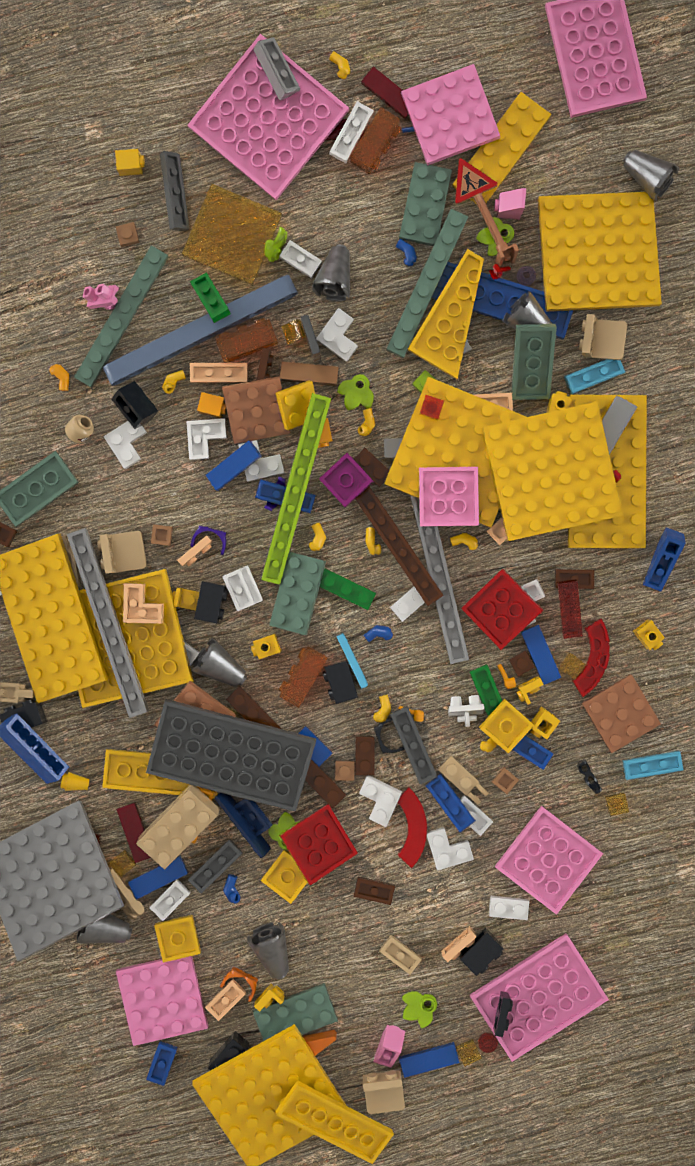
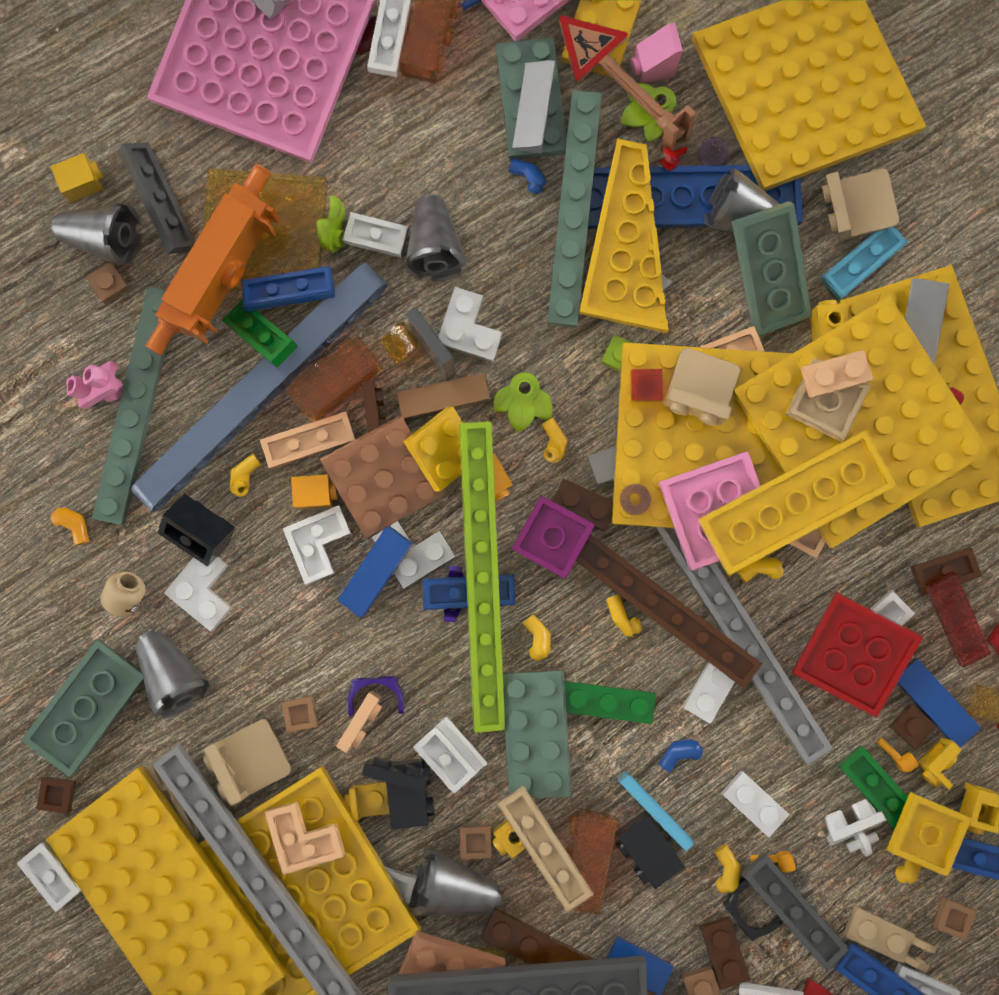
camera: 20 degrees left, 5 degrees down
(91, 486) = (168, 675): none -> flat silver cone
(133, 201) = (101, 231): none -> flat silver cone
(197, 245) = (215, 262): none -> orange brick
(200, 582) = (409, 777): none -> black plate
(236, 275) = (287, 288): none -> blue tile
(241, 643) = (475, 842): none -> medium nougat plate
(280, 659) = (545, 848): none -> tan tile
(406, 469) = (642, 492): none -> plate
(412, 677) = (755, 803): none -> white plate
(424, 211) = (534, 106): none -> light grey slope
(464, 419) = (702, 387): none -> tan bracket
(495, 506) = (796, 502): none -> yellow plate
(536, 452) = (828, 413): none -> tan tile
(545, 438) = (836, 374): none -> light nougat plate

